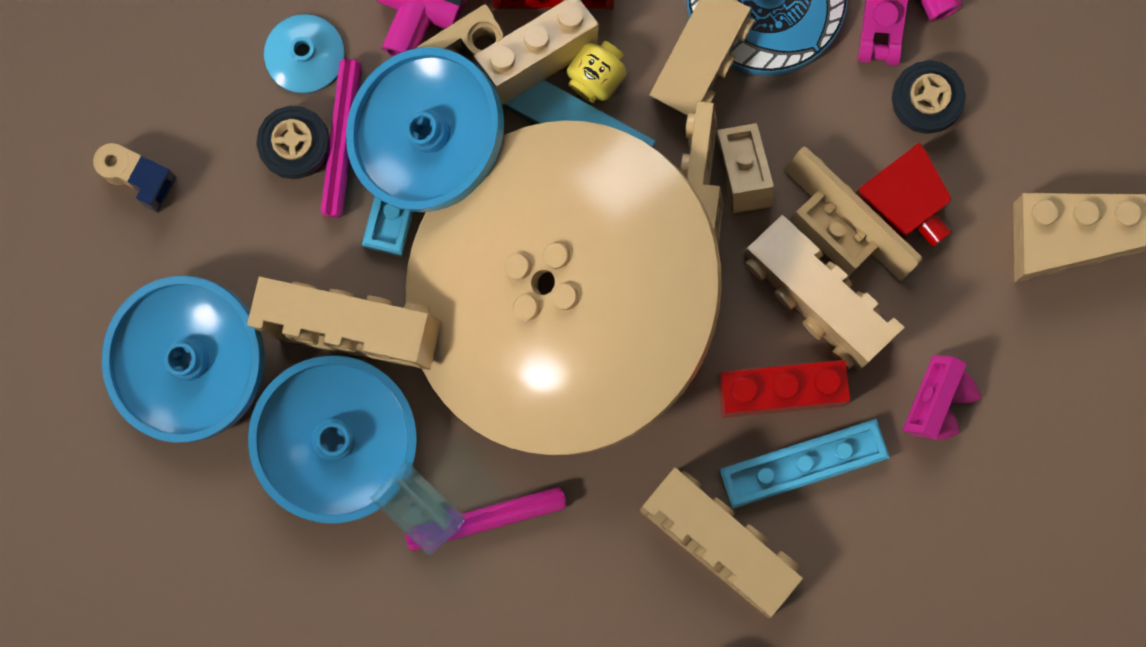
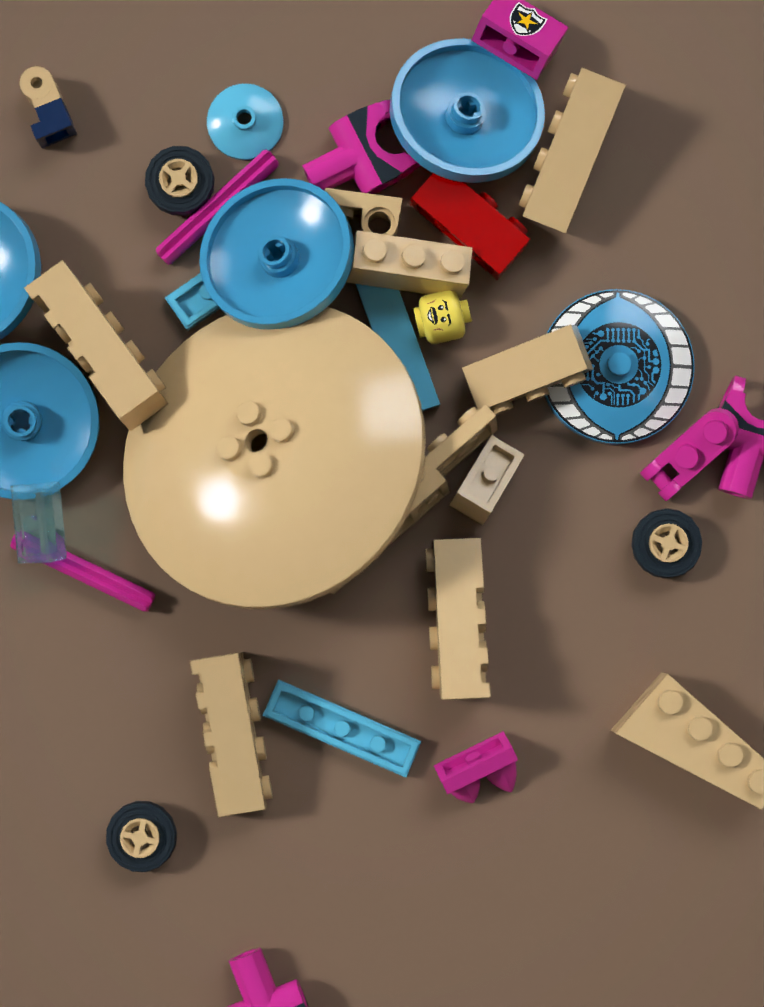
camera: 40 degrees right, 5 degrees up
(783, 389) = (372, 663): red brick -> none
(843, 222) = (521, 581): tan bracket -> none
(909, 196) = (586, 604): red torso -> none

